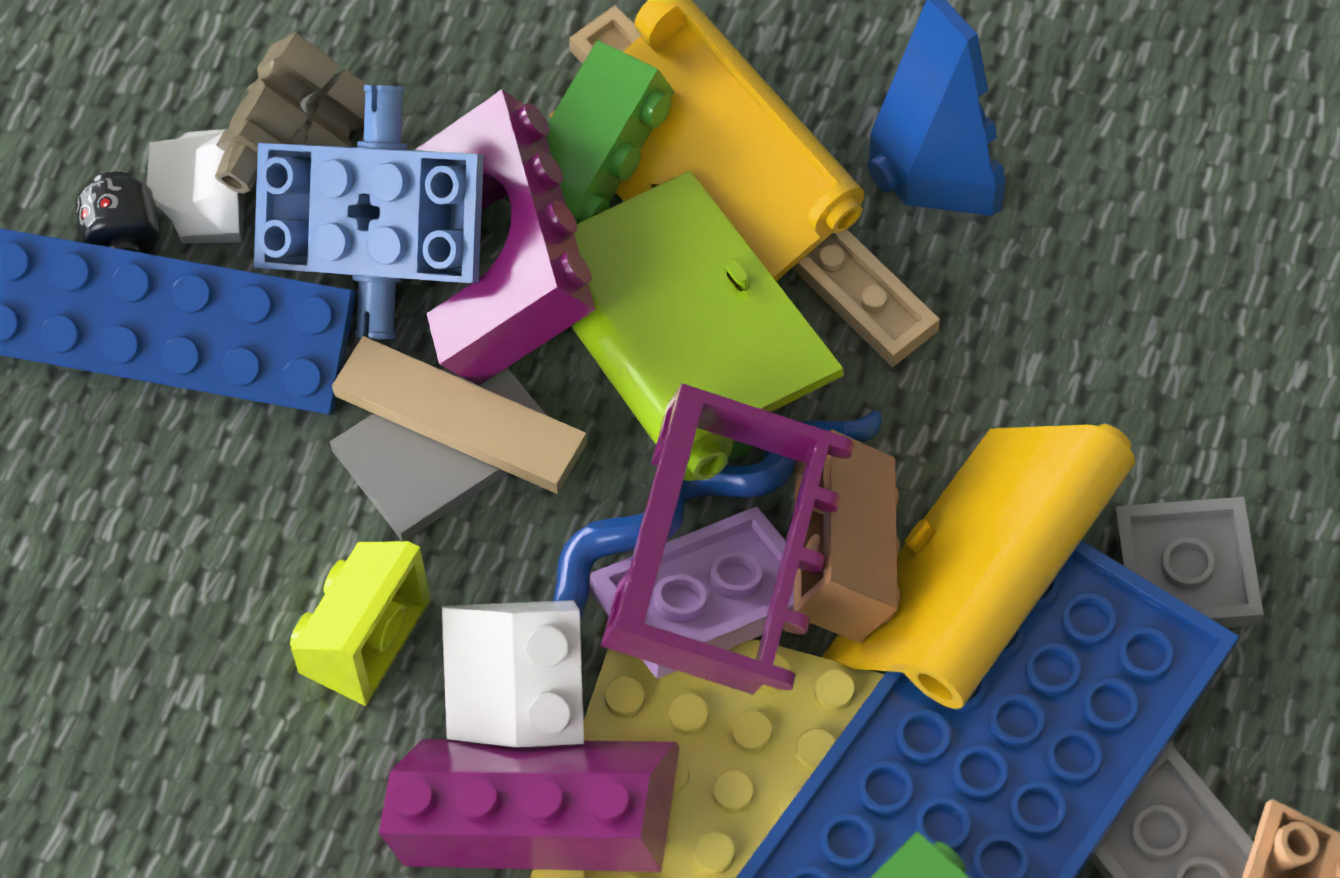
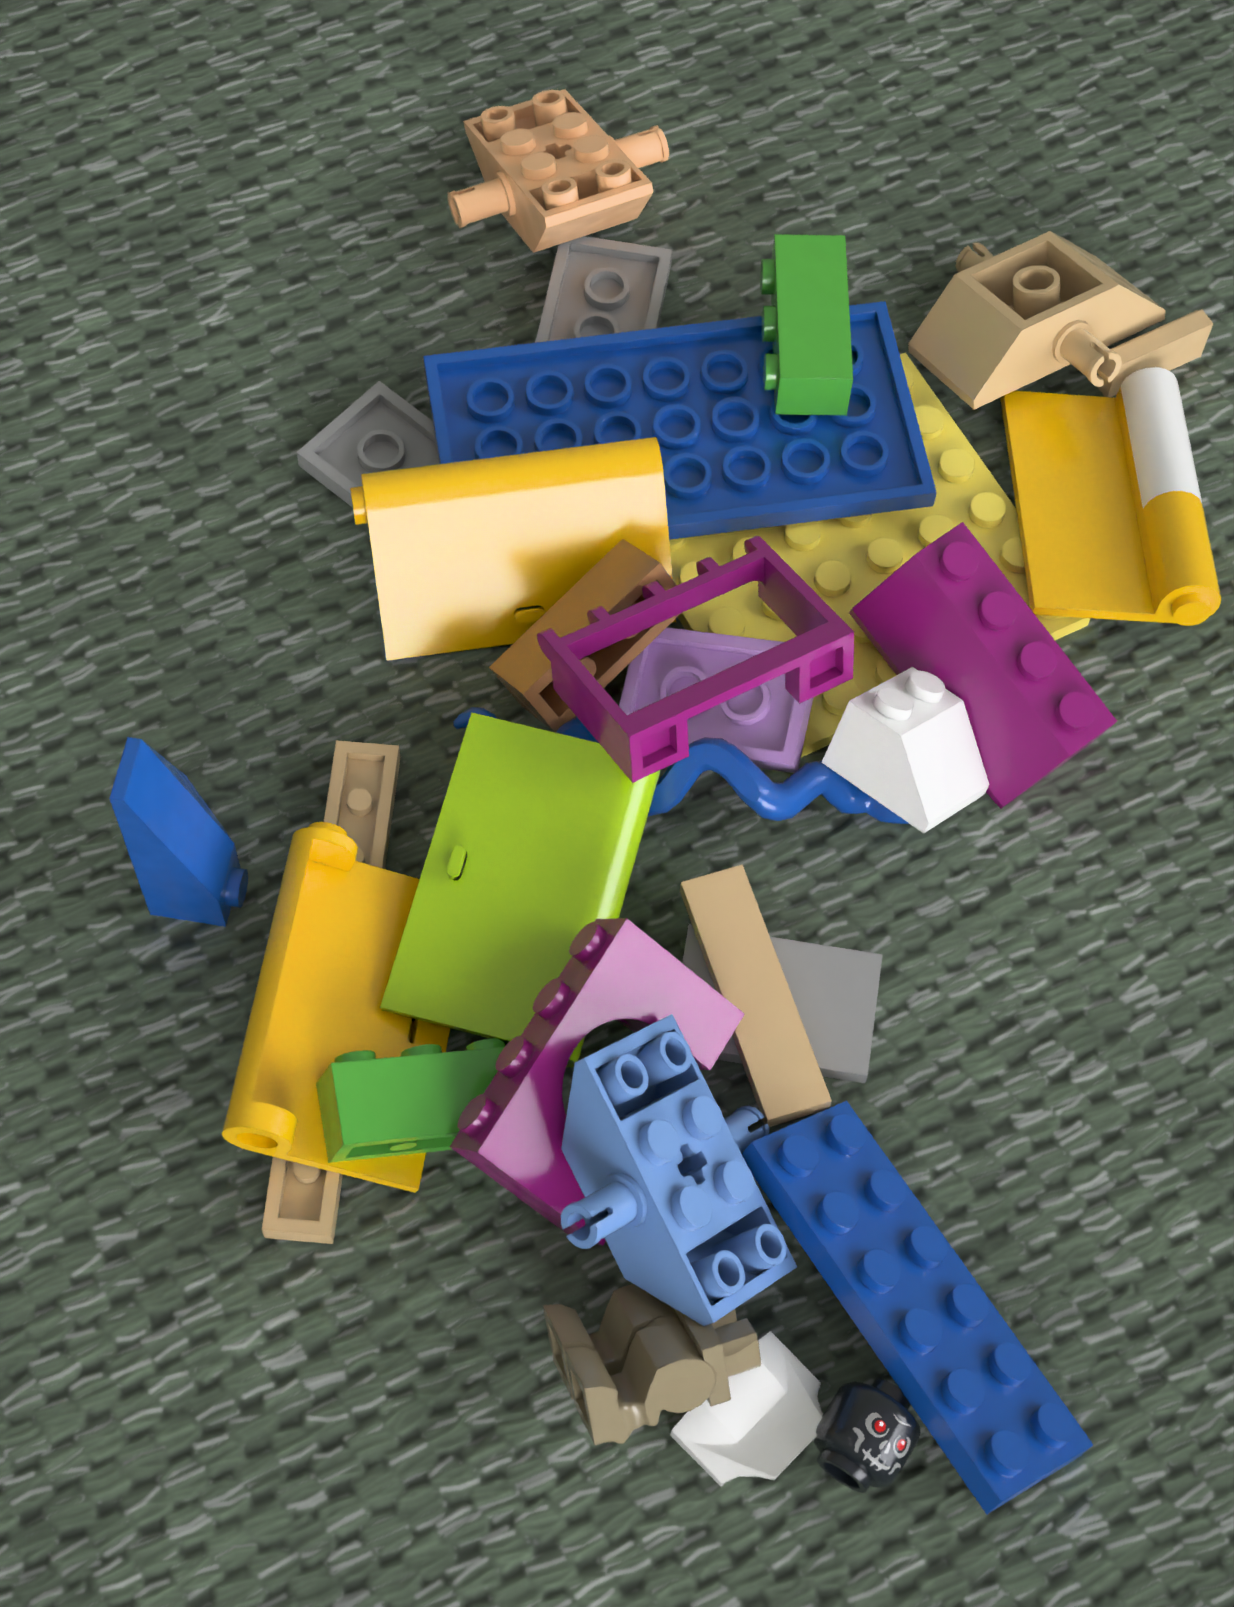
camera: 140 degrees left, 0 degrees up
(362, 618) = (982, 895): neon yellow slope -> none

